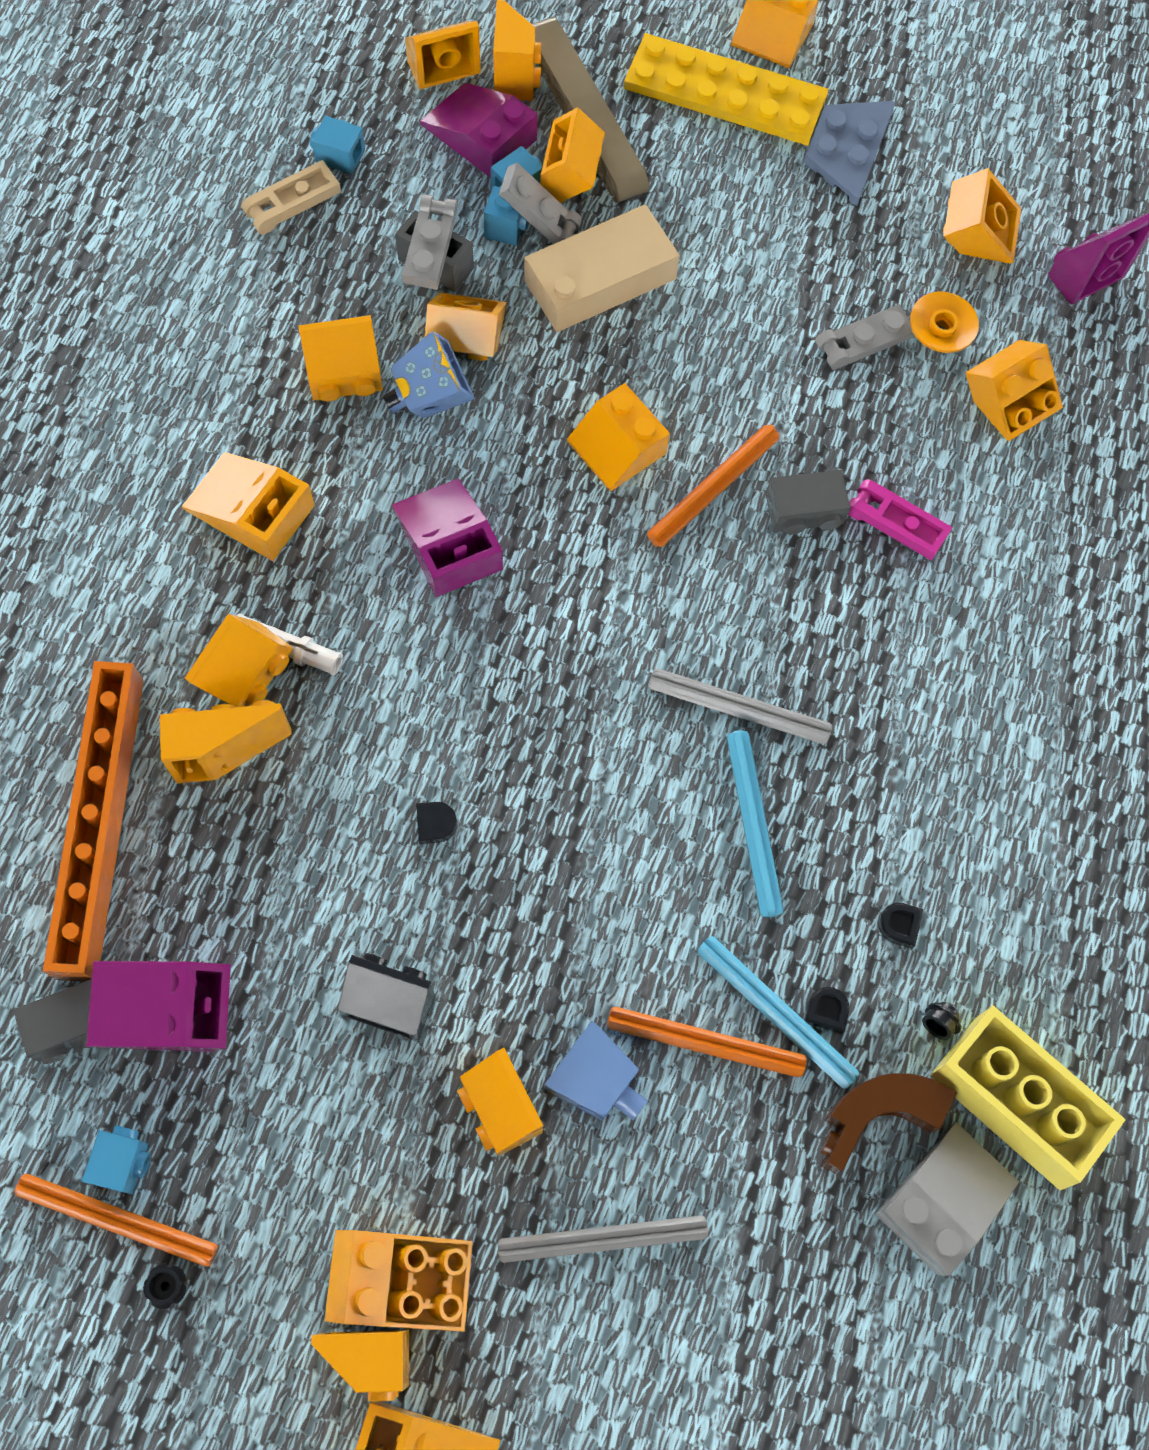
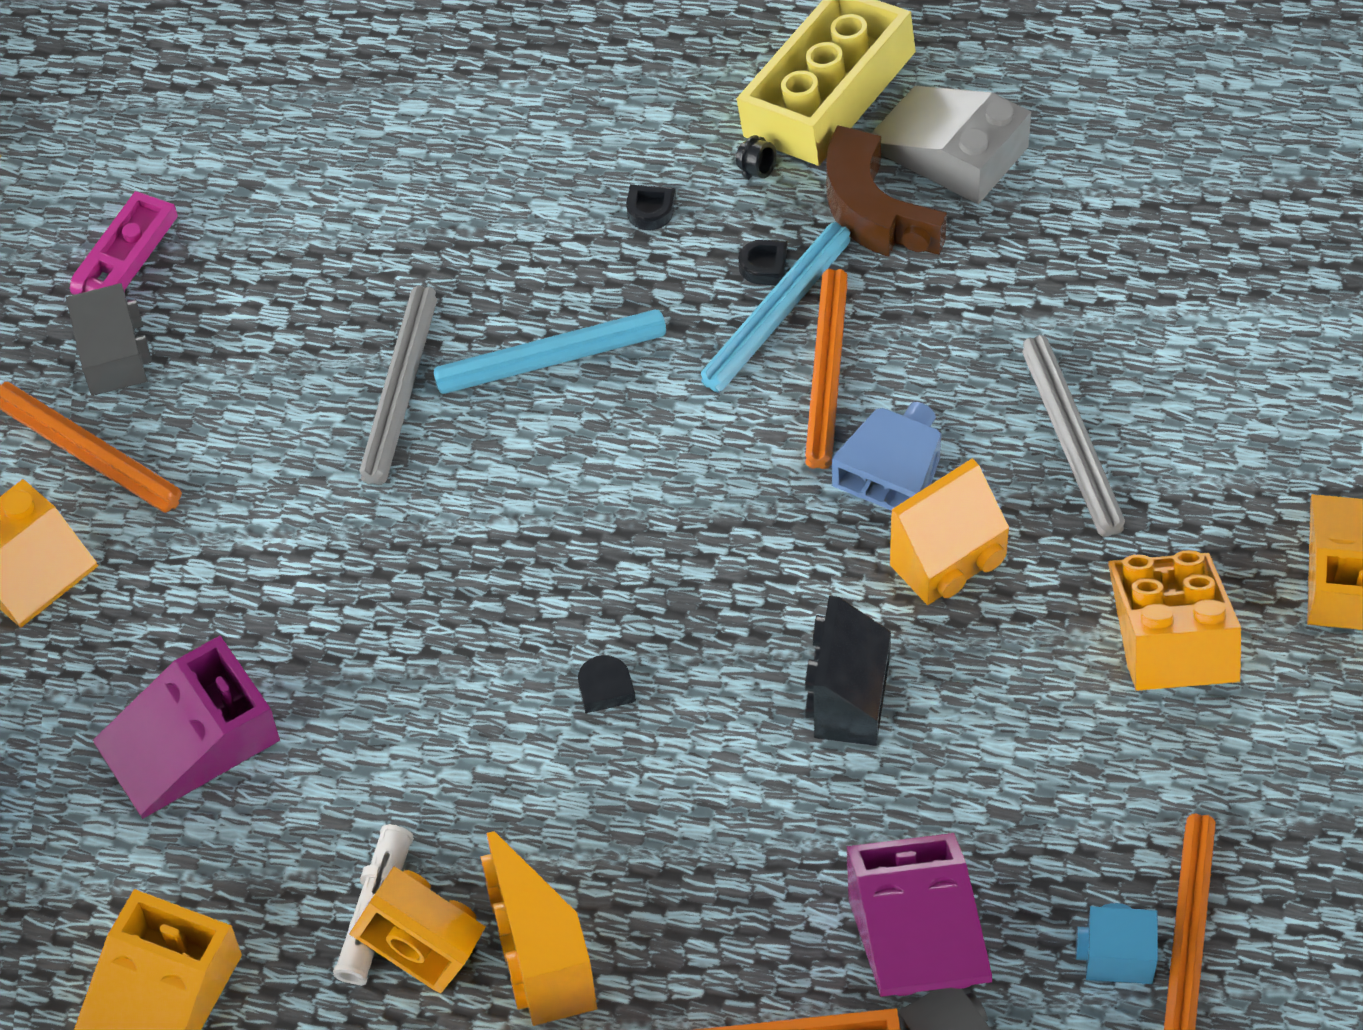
camera: 90 degrees left, 15 degrees down
(153, 1286) = (1254, 850): black plate -> none
(368, 1360) = (1270, 601): light orange slope -> none

